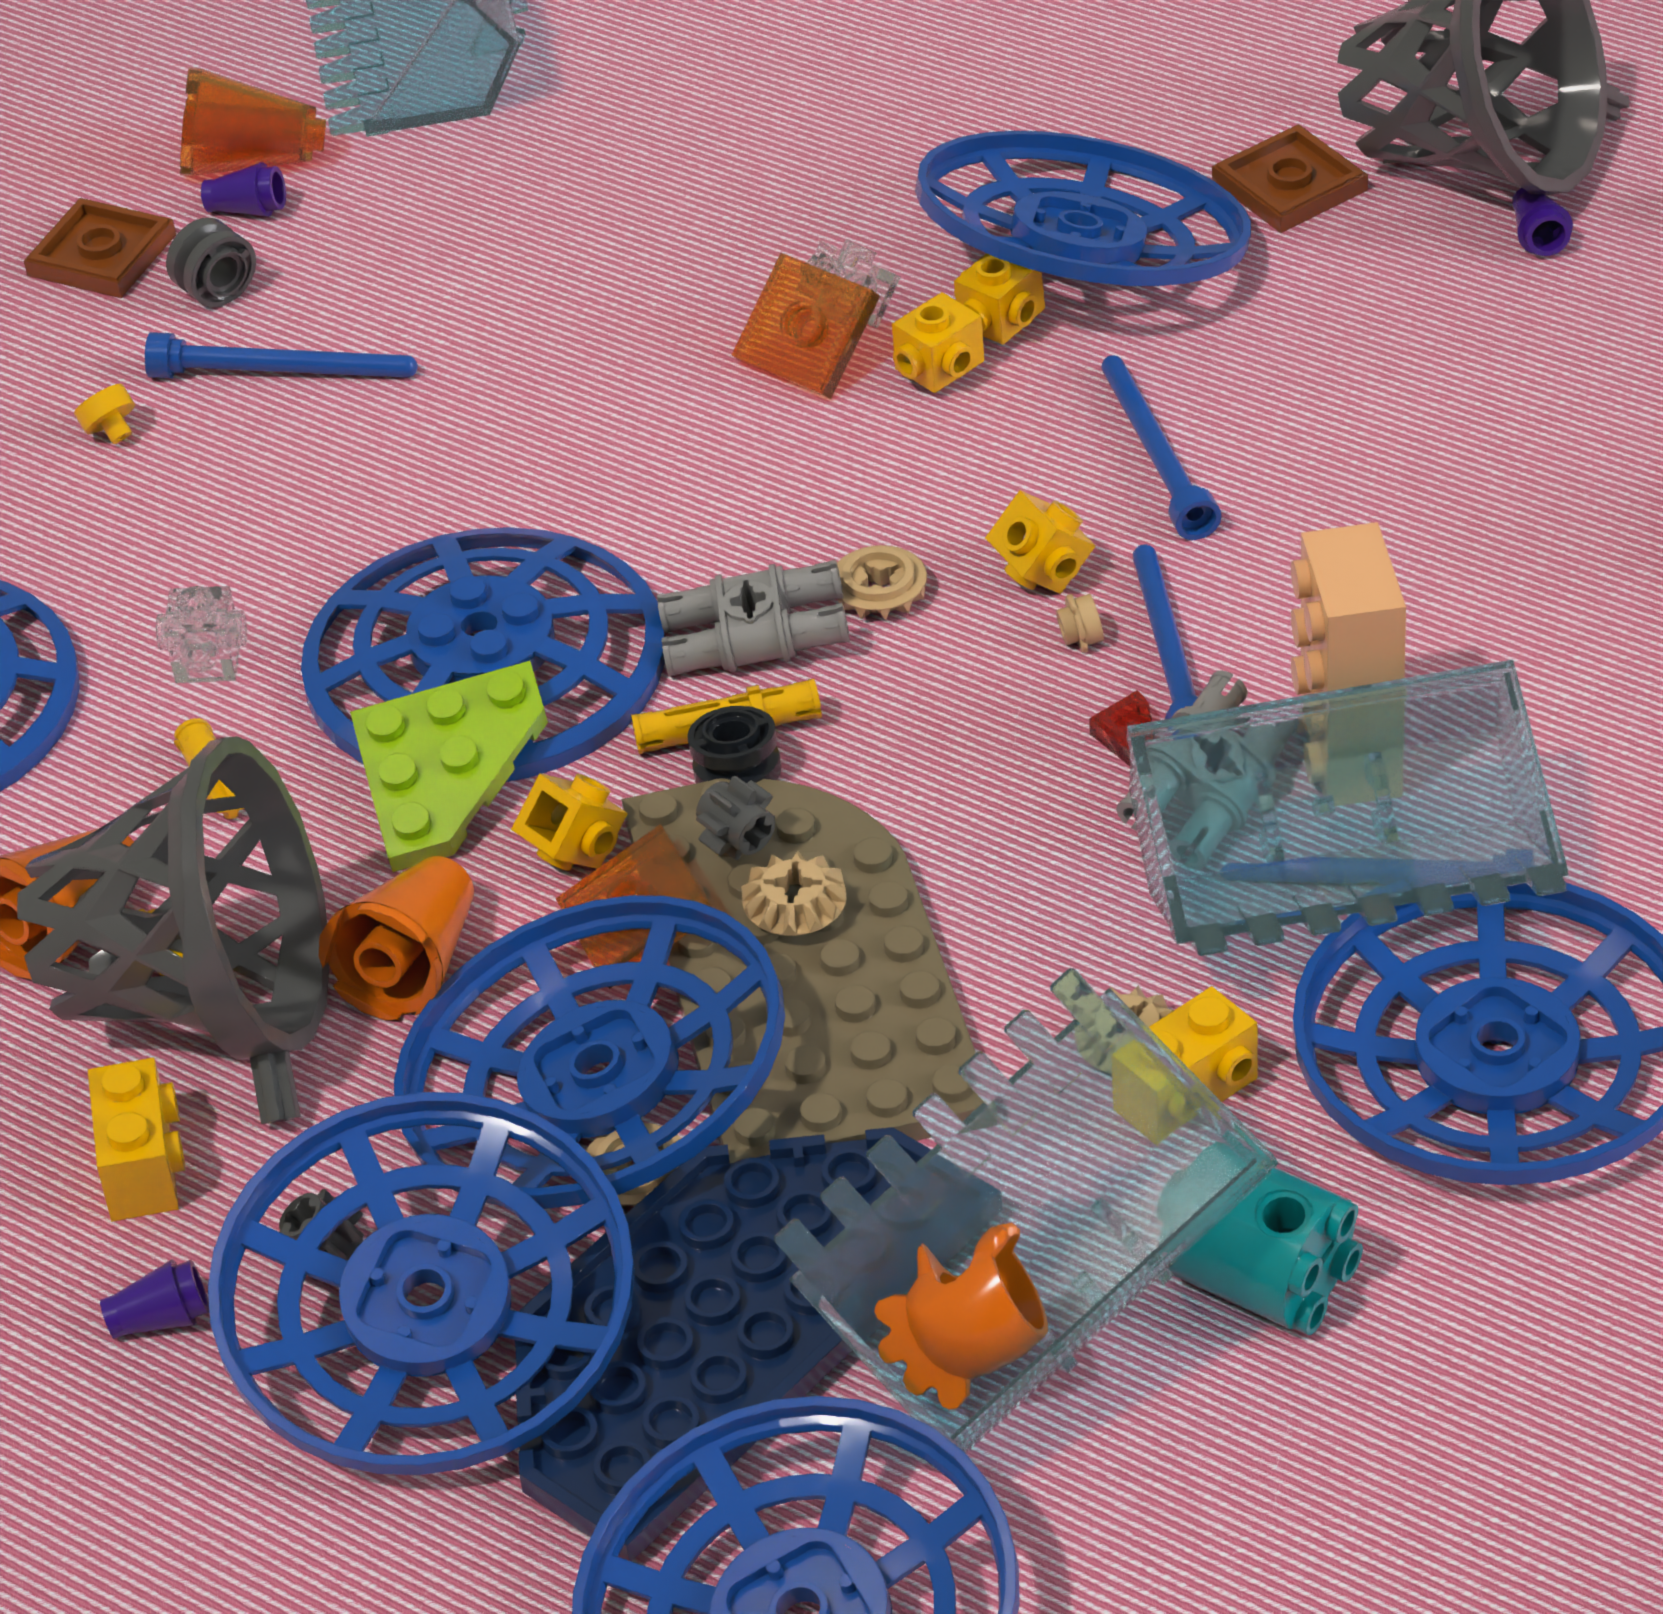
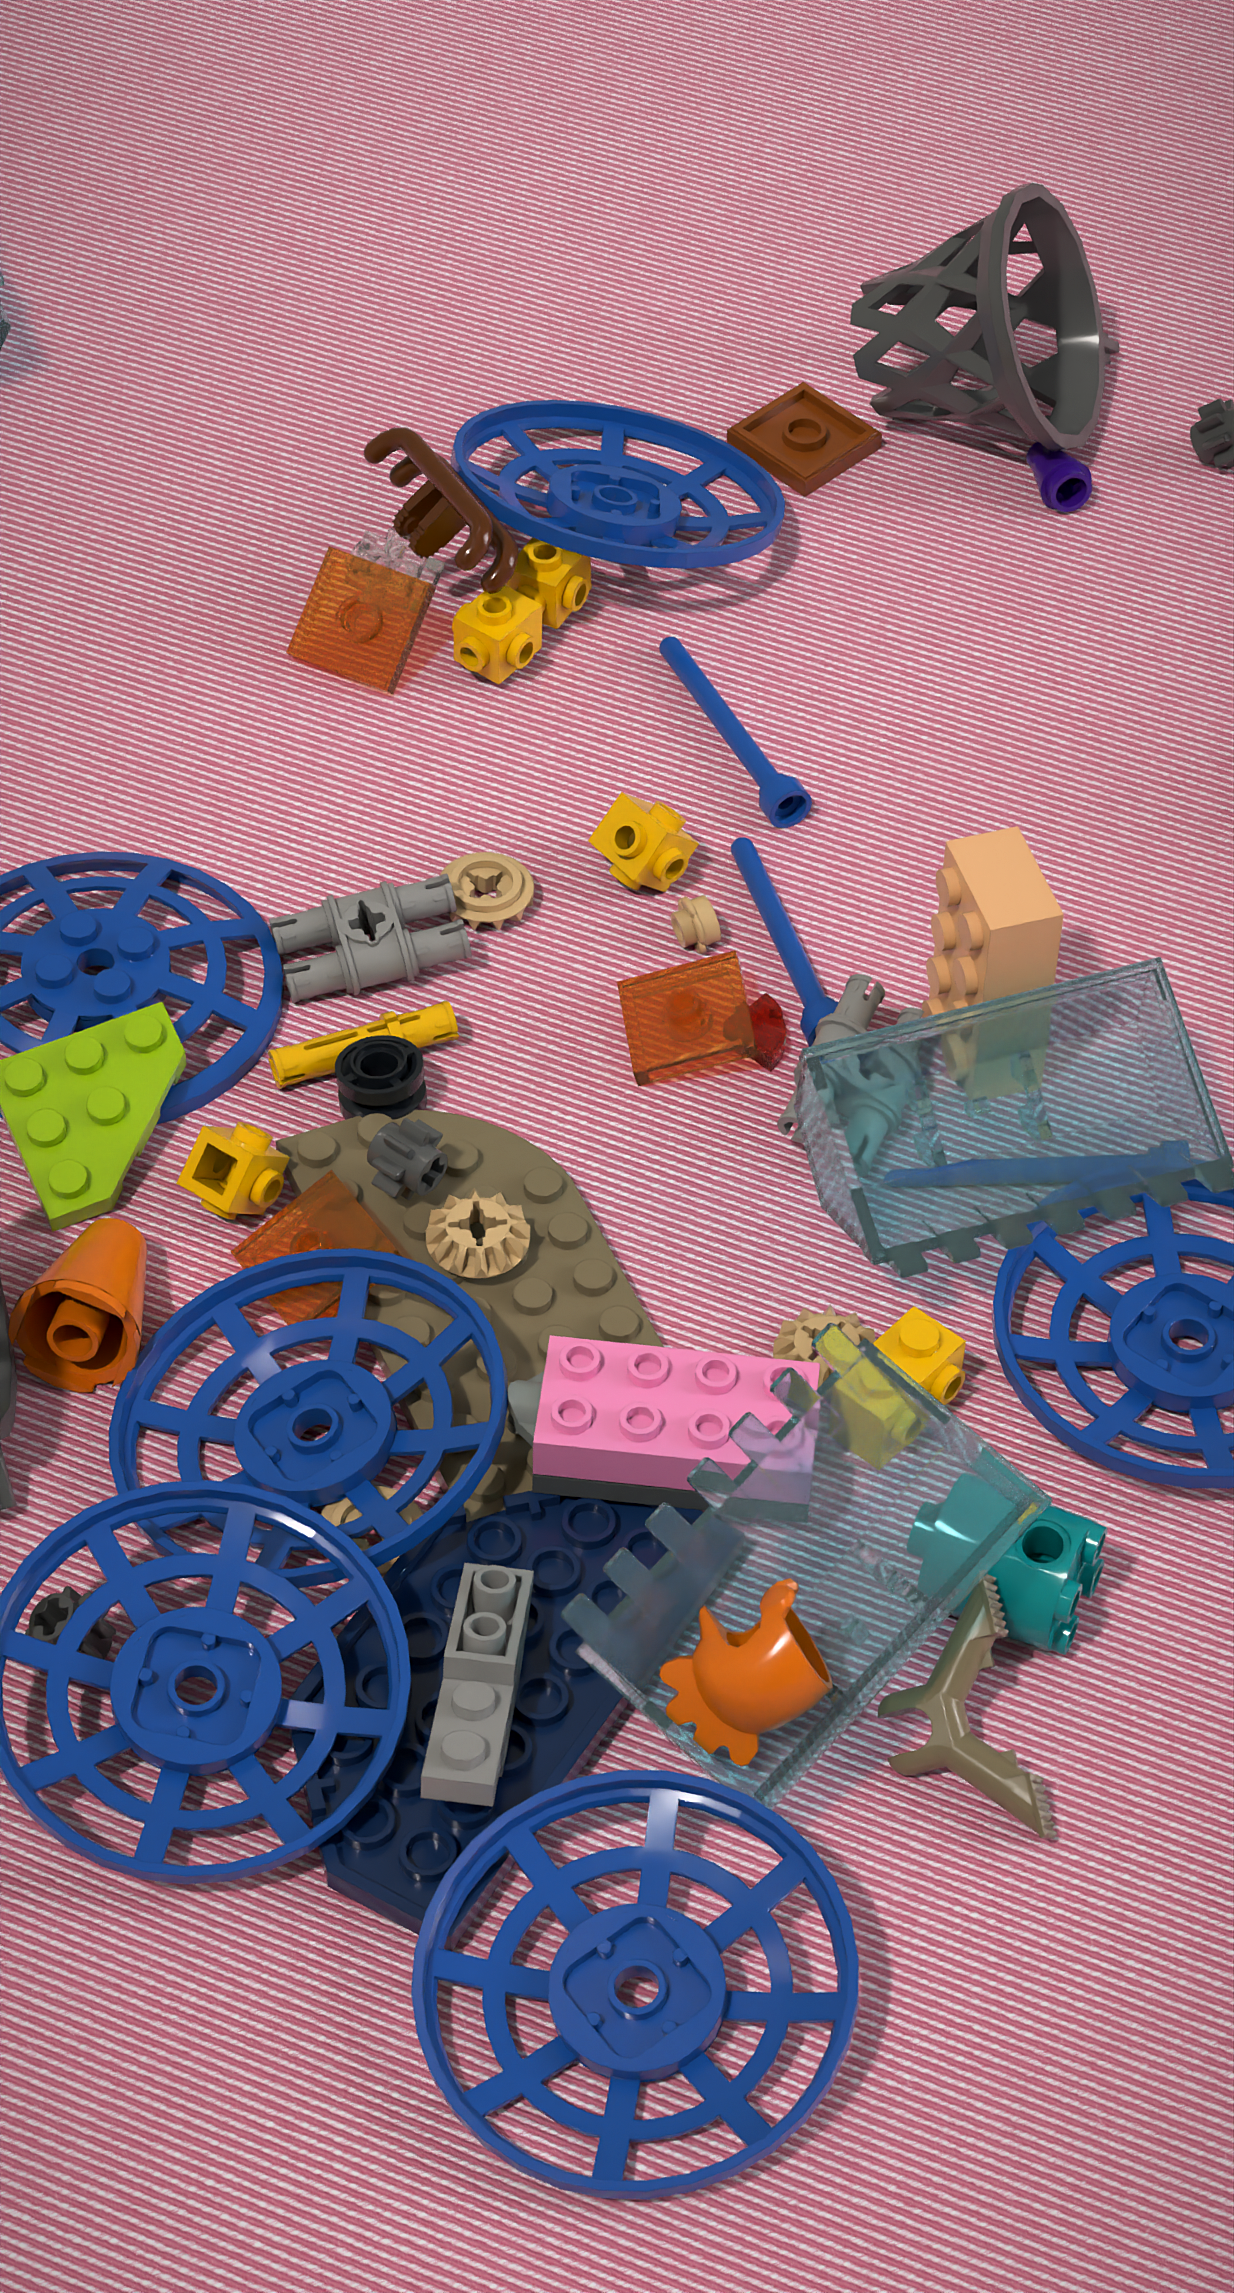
camera: 15 degrees left, 5 degrees up
(700, 1311) = (478, 1685): none -> light grey slope
(881, 1057) = (641, 1417): none -> bright pink piece
(895, 220) = (443, 508): none -> reddish brown piece
(1051, 709) = (687, 1018): none -> clear orange plate
(1168, 1399) = (951, 1739): none -> dark tan piece

